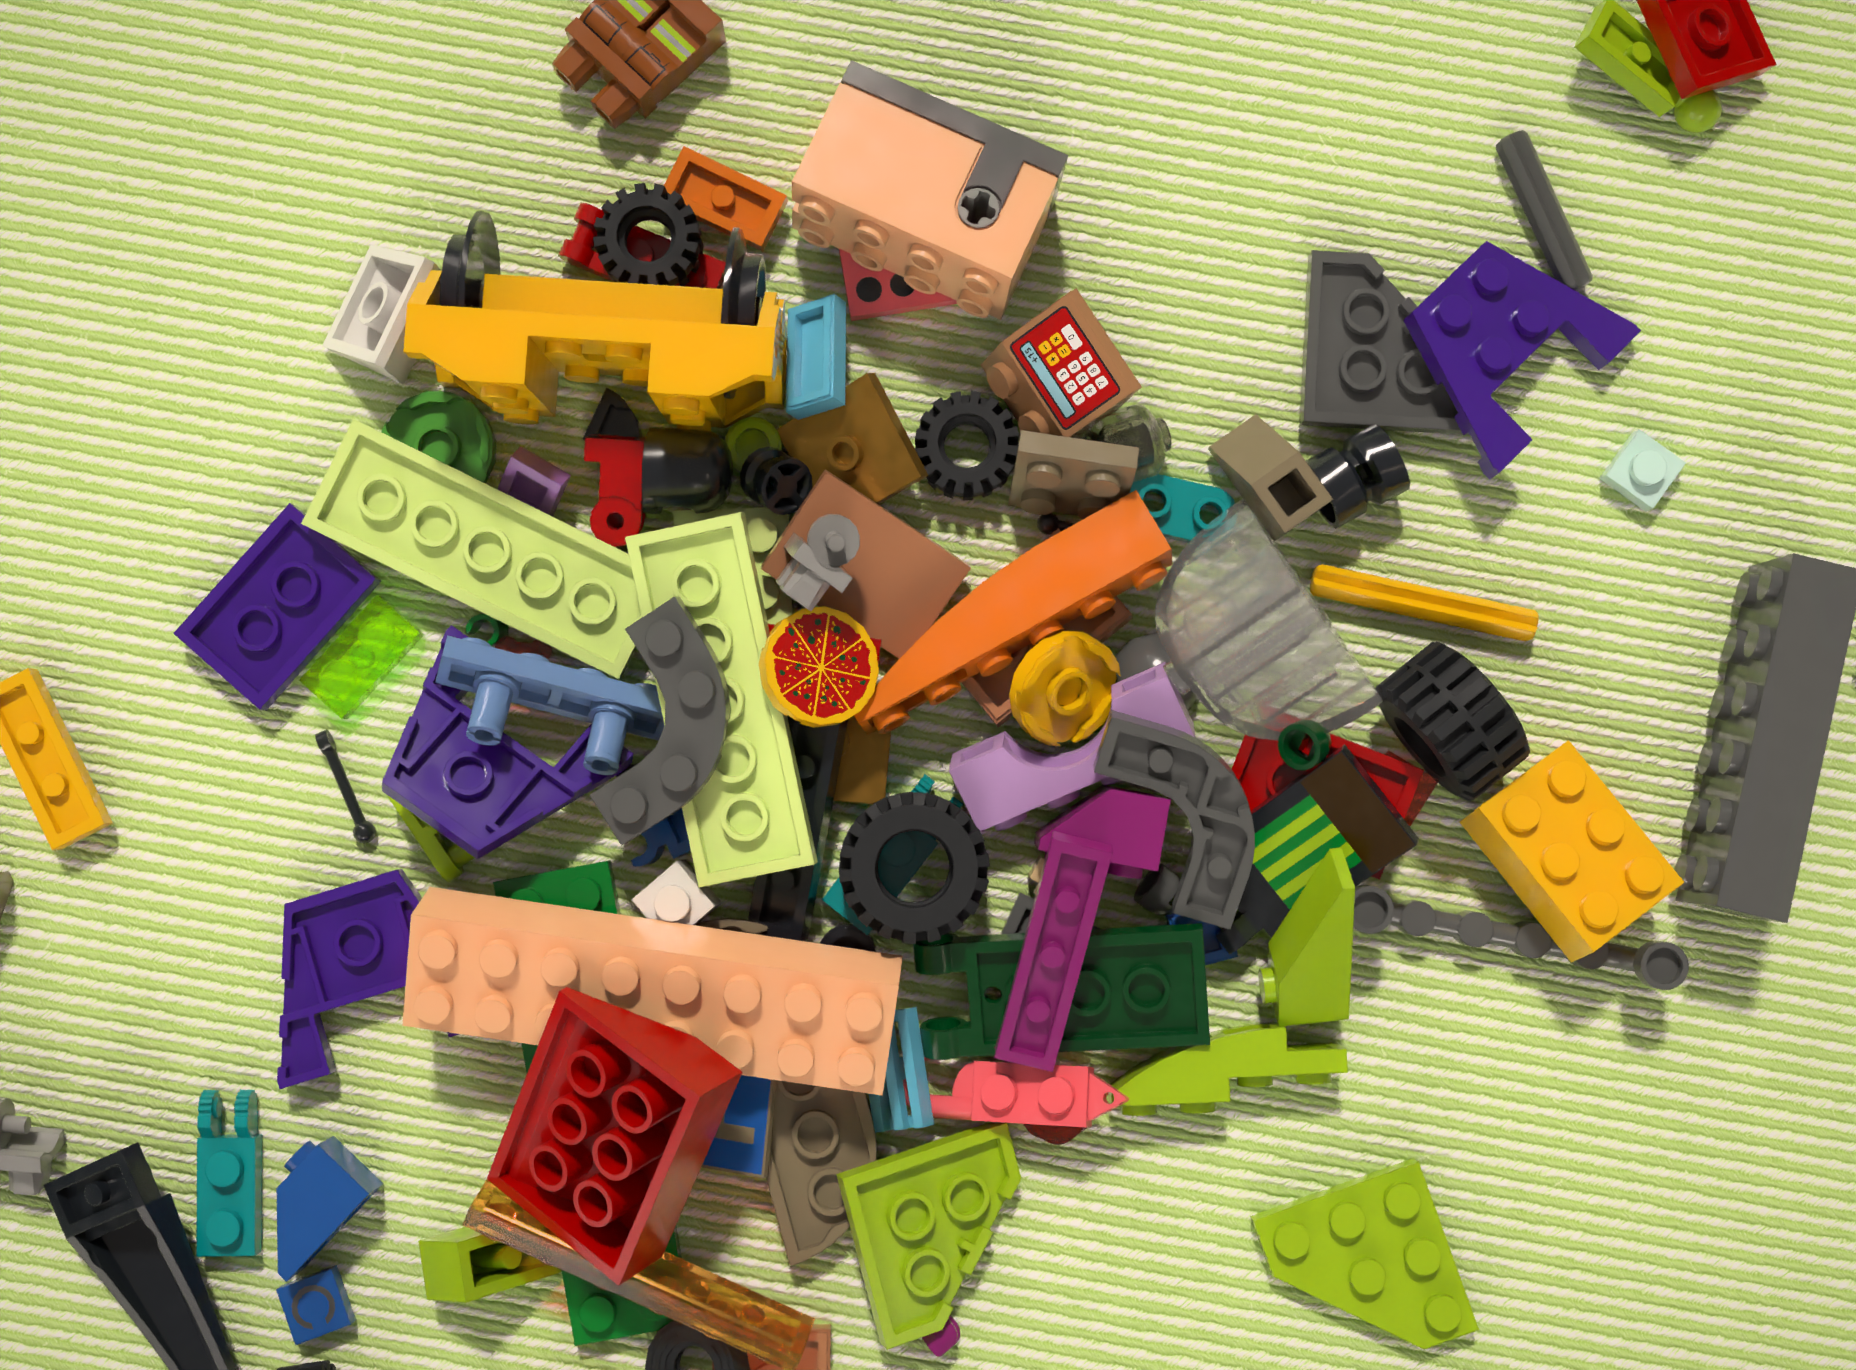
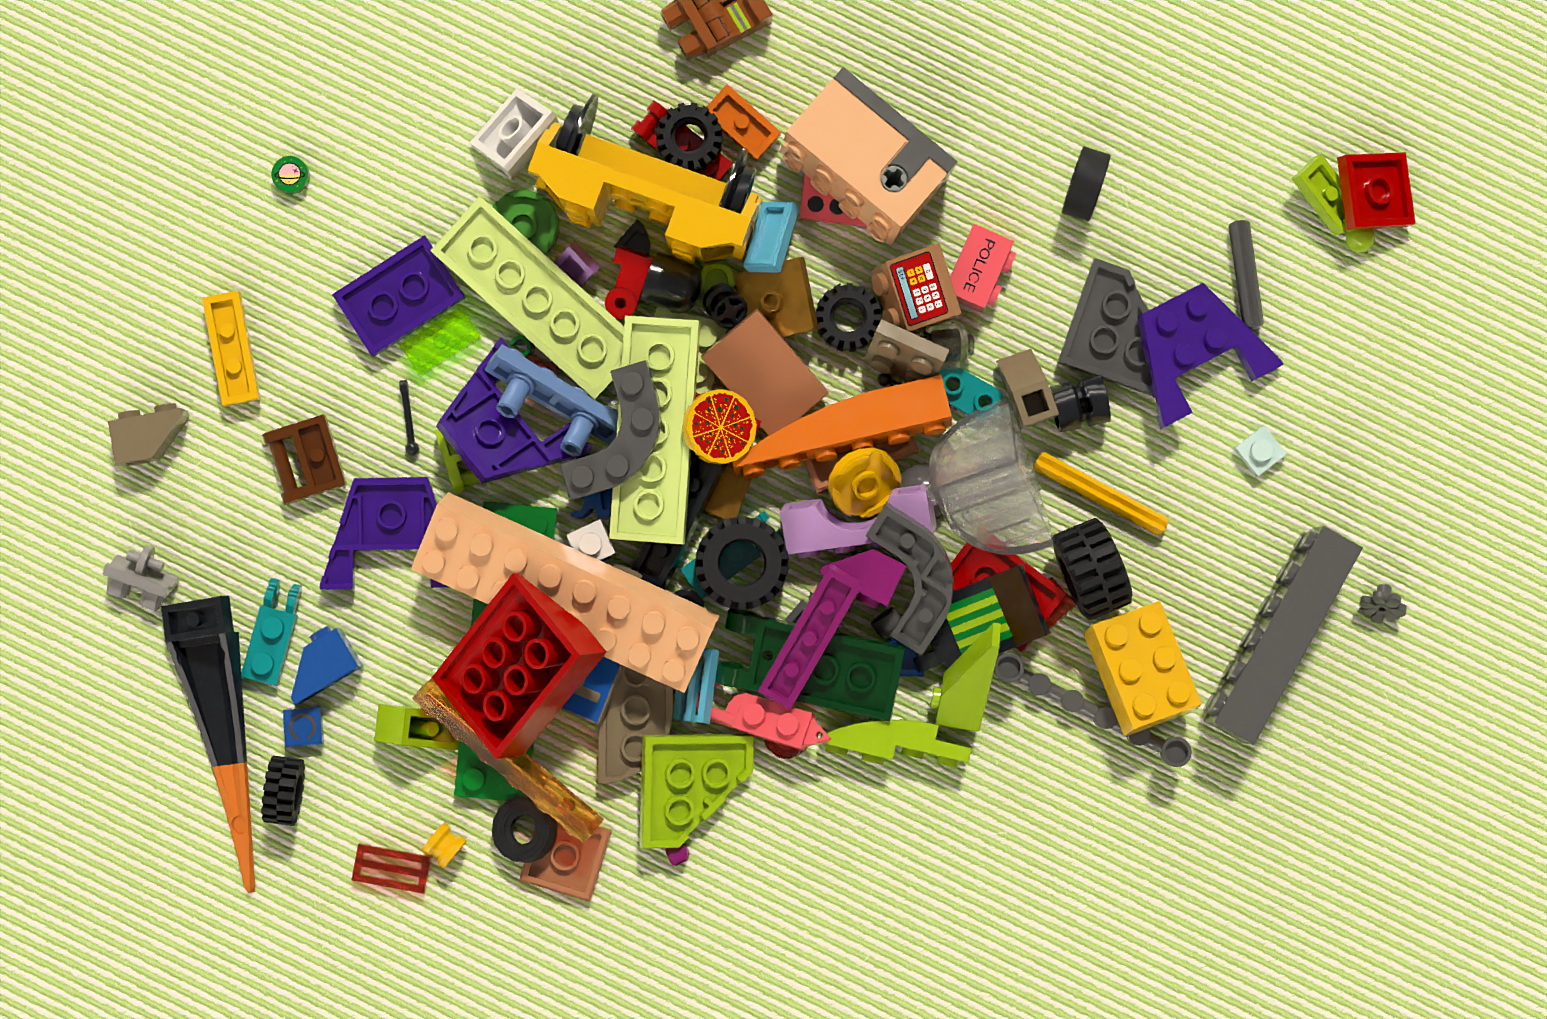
camera: 15 degrees right, 0 degrees up
(64, 470) = (290, 175): none -> green tile
(218, 884) = (316, 455): none -> reddish brown plate
(817, 564) = (736, 364): light grey hips -> none
(1144, 311) = (979, 267): none -> coral brick
(1269, 140) = (1086, 183): none -> black tyre
(1296, 737) = (995, 551): dark green hinge -> none
(1372, 1253) = (953, 880): lime plate -> none

